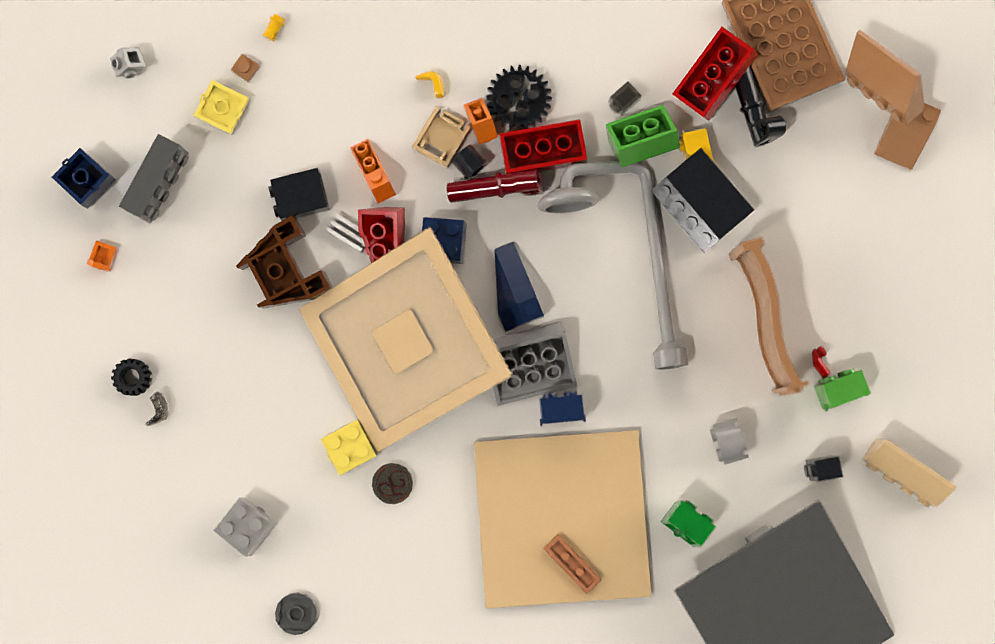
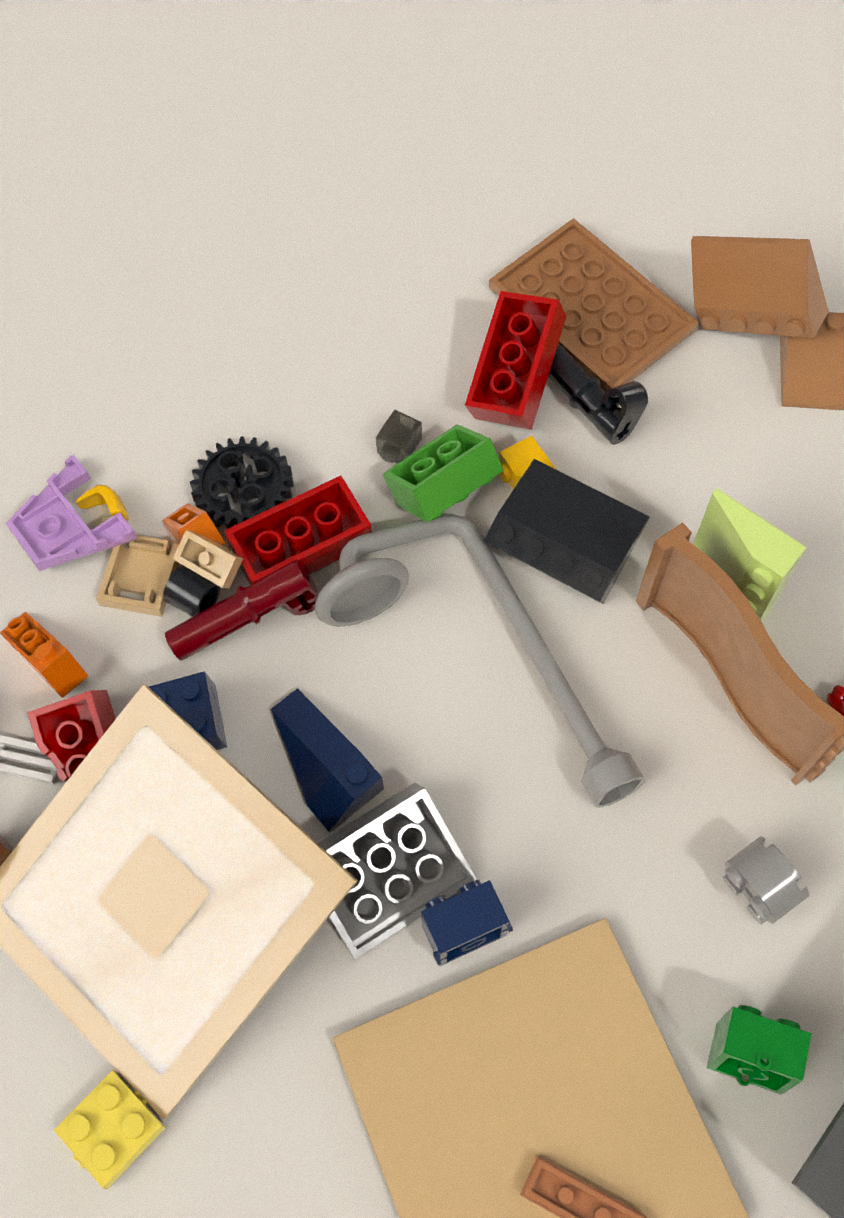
camera: 20 degrees left, 20 degrees down
(392, 483) = (207, 1170): clear smoke tile -> none
(396, 89) = (55, 532): none -> lavender wing
(485, 147) = (208, 558): none -> tan slope
(793, 262) = (748, 550): none -> yellowish green slope

